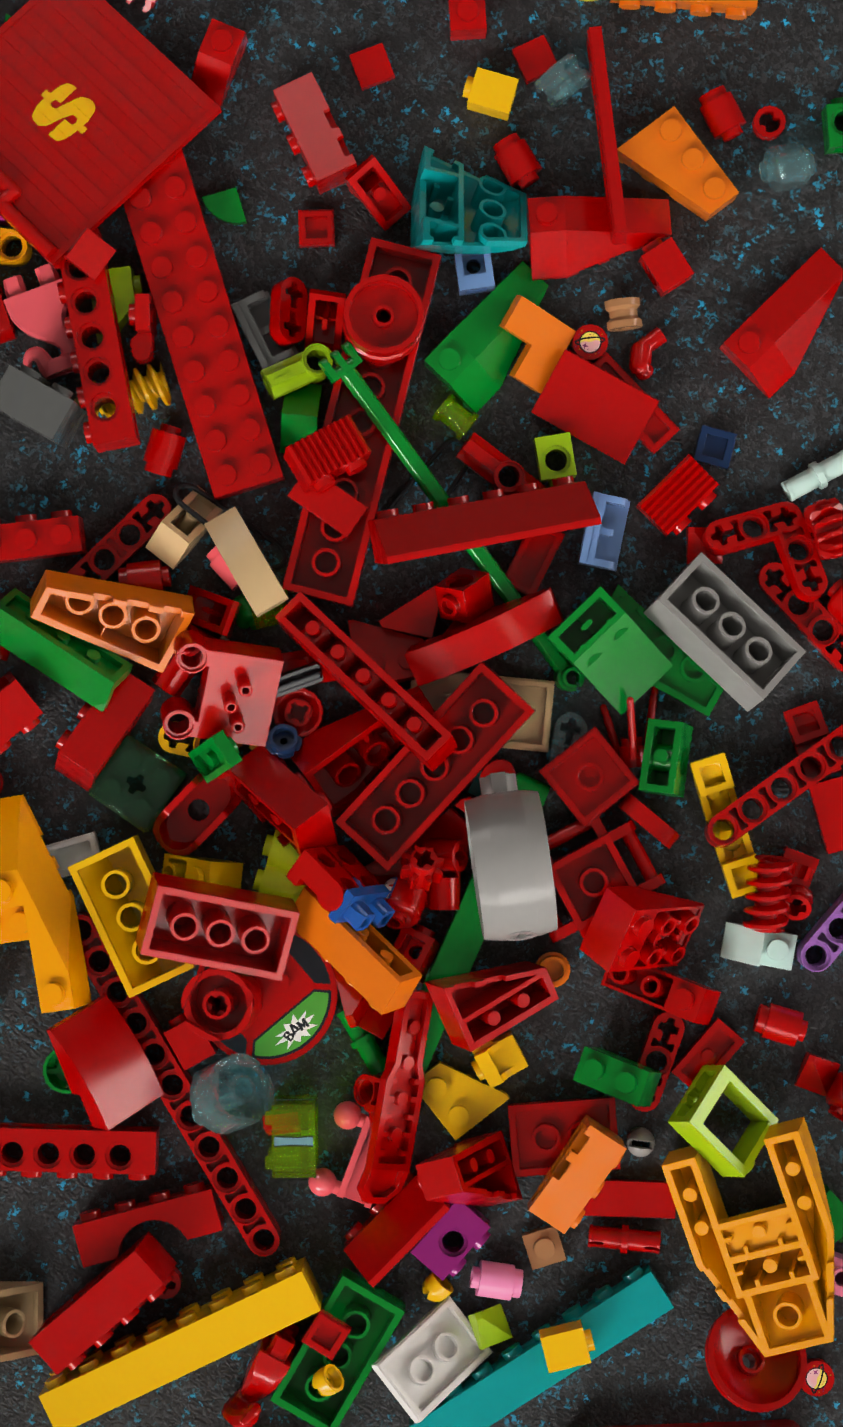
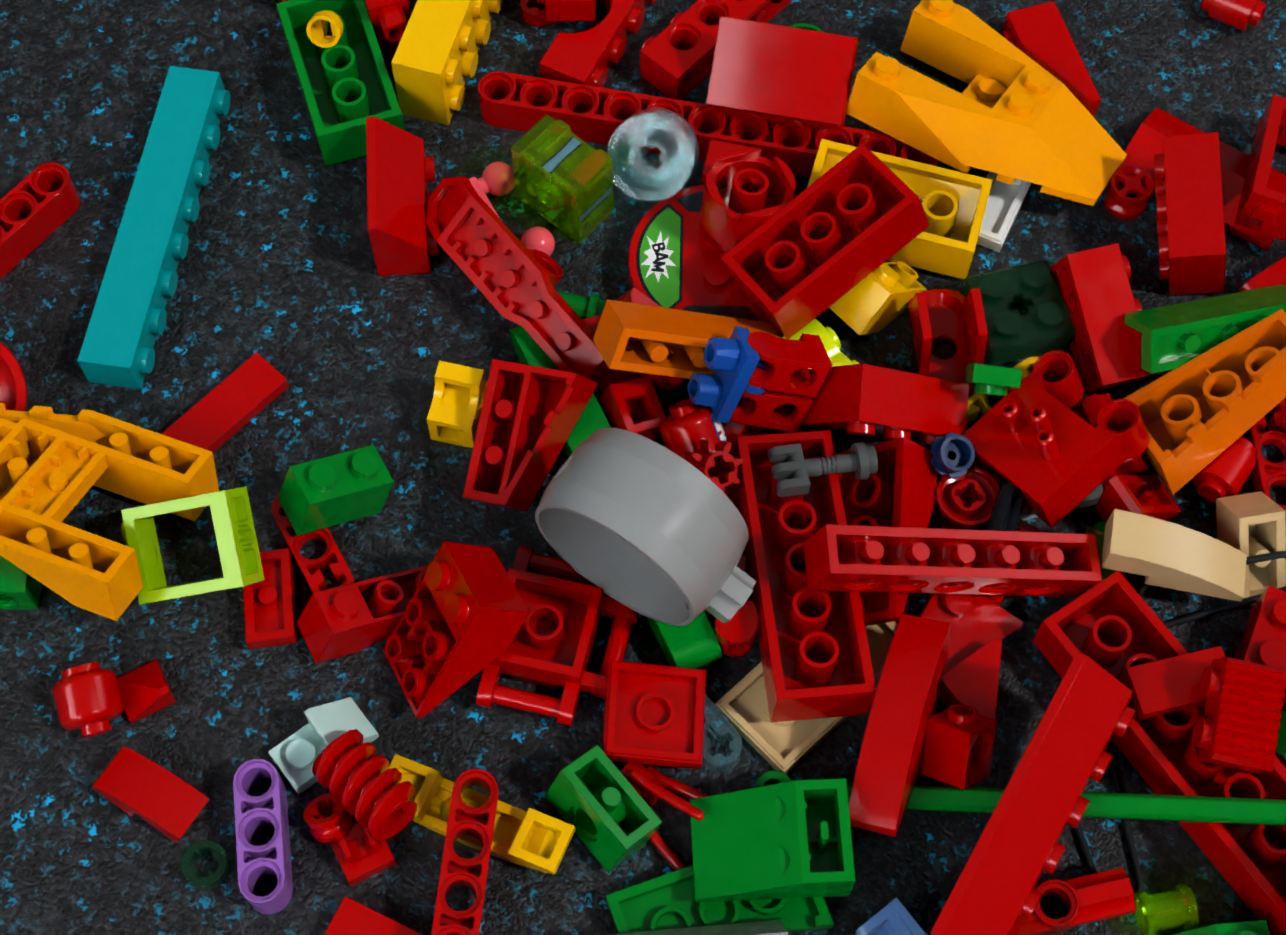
camera: 130 degrees right, 25 degrees down
(326, 1334) = (366, 60): red tile -> none
(343, 786) = (795, 470): none -> dark grey hinge
(431, 1360) = (254, 134): white tile -> none
(436, 1288) = (319, 199): yellow hinge -> none
(446, 1259) = (346, 262): magenta brick -> none
(459, 1098) = (460, 341): yellow wing -> none
(471, 1173) = (383, 282): red wedge -> none
(490, 1326) = (231, 211): lime slope -> none
(496, 1280) = (264, 246): bright pink brick -> none
(533, 561) = (930, 858): red tile -> none
(543, 1246) = (251, 312): medium nougat plate -> none
(544, 1128) = (330, 403): red plate -> none
(557, 967) = (495, 527): orange plate -> none
(566, 1345) = (145, 234): yellow brick -> none
(577, 1175) = (283, 377): orange wedge -> none
(624, 1239) = (183, 381): red pin -> none
(640, 1134) = (258, 476): light grey hinge -> none
(649, 820) = (552, 740): red beam -> none
(780, 1024) = (227, 692): red brick -> none

